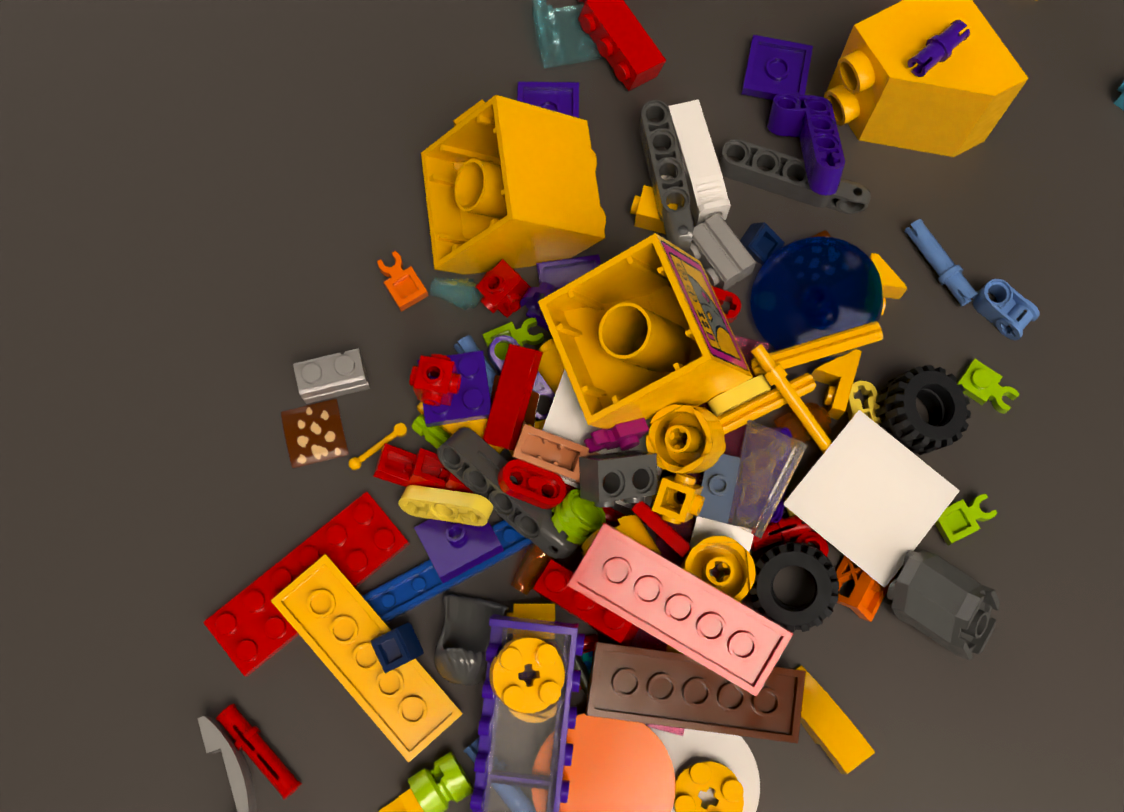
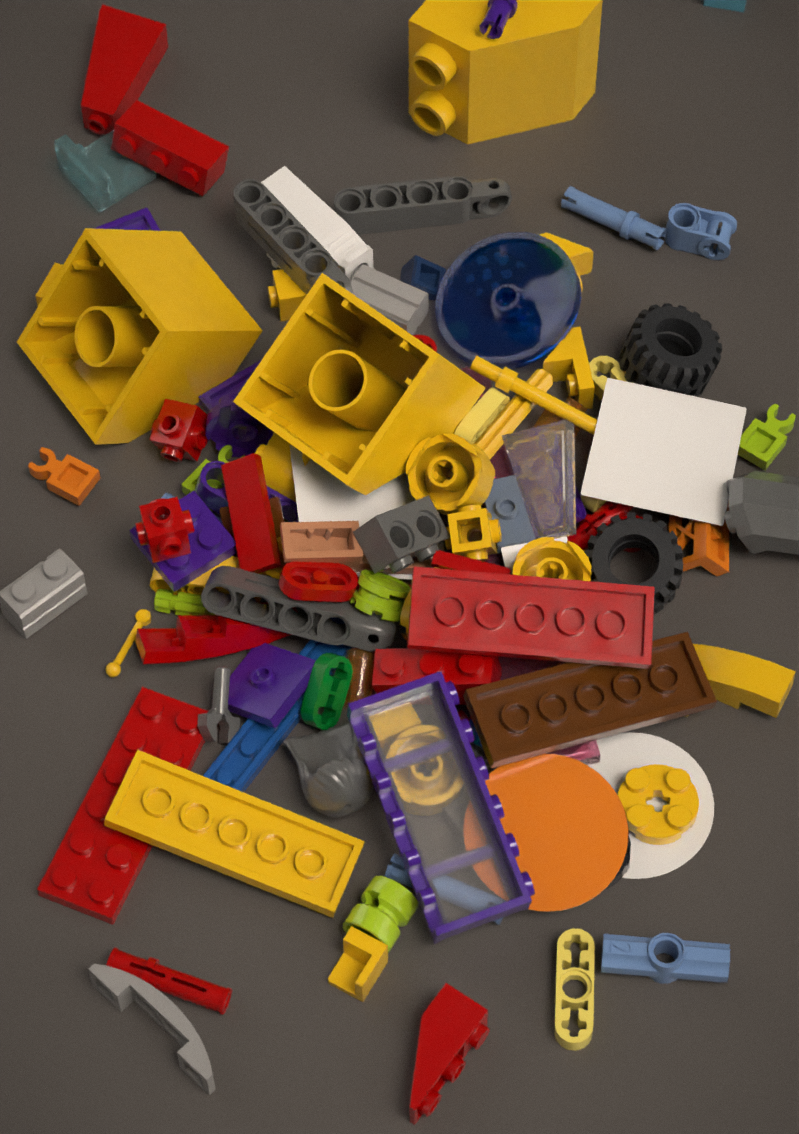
camera: 25 degrees left, 15 degrees down
(314, 433) = (52, 662): reddish brown sticker -> none
(397, 647) = (261, 804): dark blue slope -> none
(411, 544) = (219, 712): none -> dark grey bar
(446, 505) = (242, 641): light yellow beam -> none
(456, 291) = (130, 458): clear light blue cone -> none
(499, 570) = (326, 691): none -> green beam
(511, 661) = (426, 722): yellow plate -> none
(621, 435) = (383, 497): magenta plate -> none
(776, 67) = (347, 112): dark purple plate -> none
(815, 124) = (422, 148): dark purple beam -> none
(823, 346) = (542, 332): yellow axle -> none
(982, 384) = (721, 312): lime plate -> none

